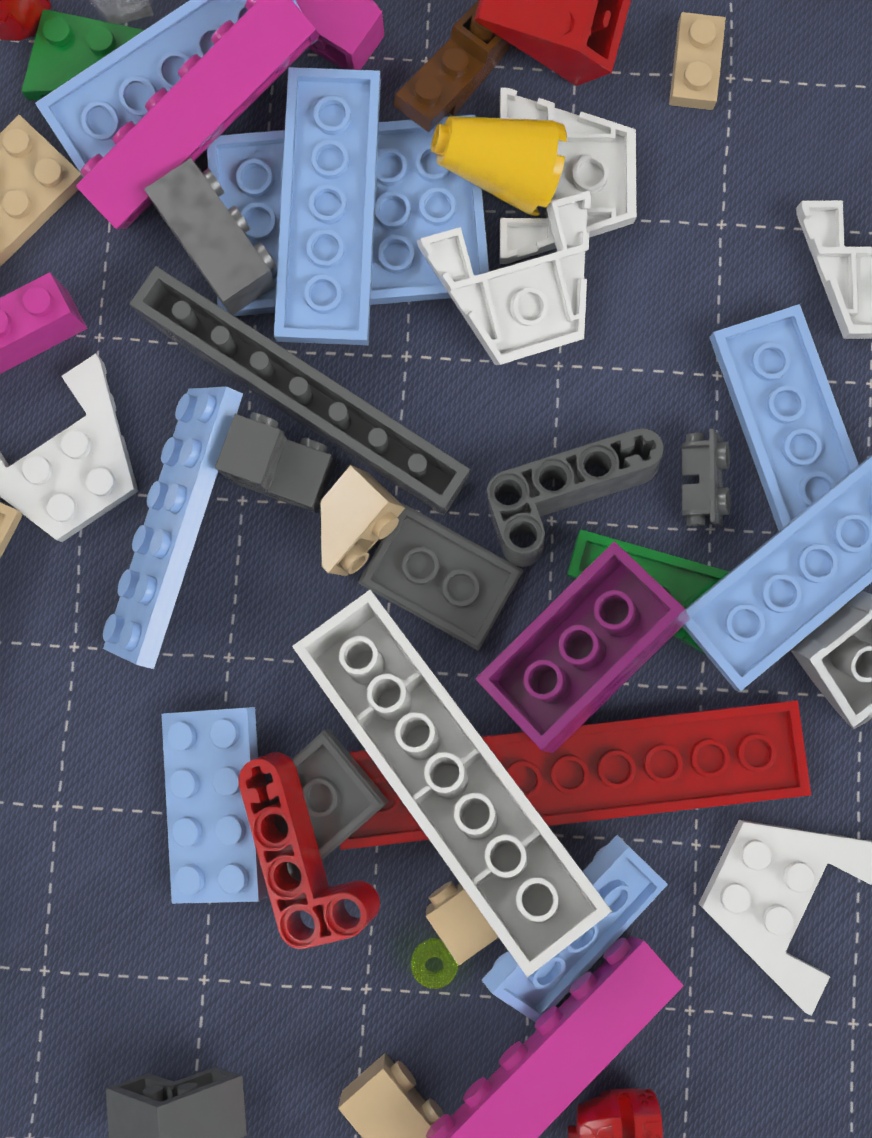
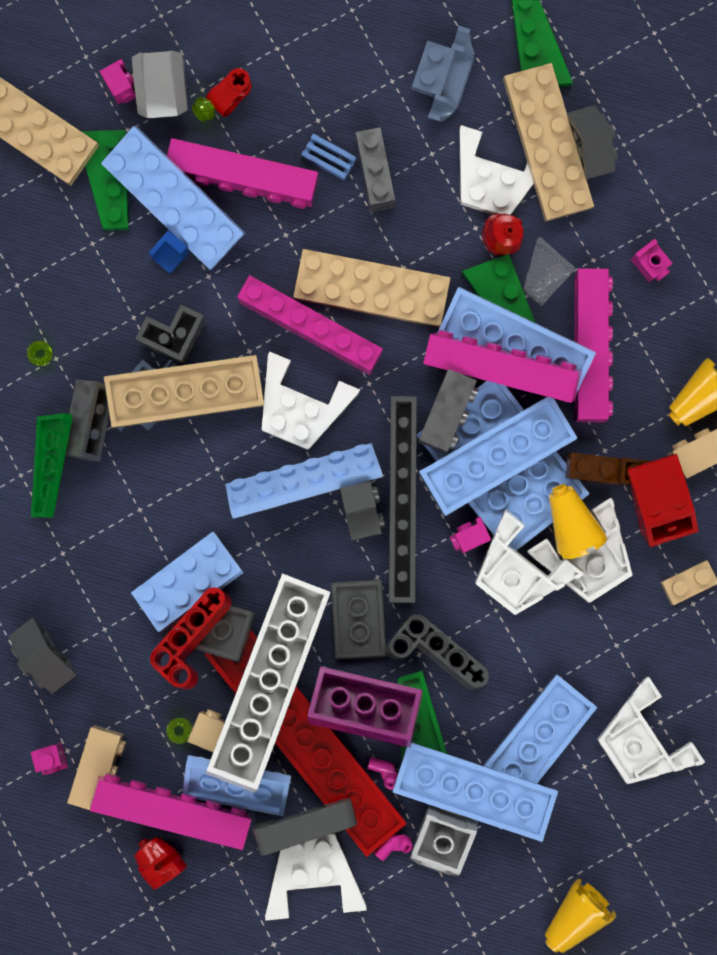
camera: 50 degrees right, 0 degrees up
(353, 519) = (360, 562): tan slope -> none
(423, 328) = (470, 536): none -> dark pink brick
(697, 679) = (387, 770): none -> dark pink arm
(708, 866) = (303, 827): none -> dark grey beam
(709, 496) = (494, 712): dark grey hinge -> none
(816, 734) = (394, 843): none -> dark pink arm

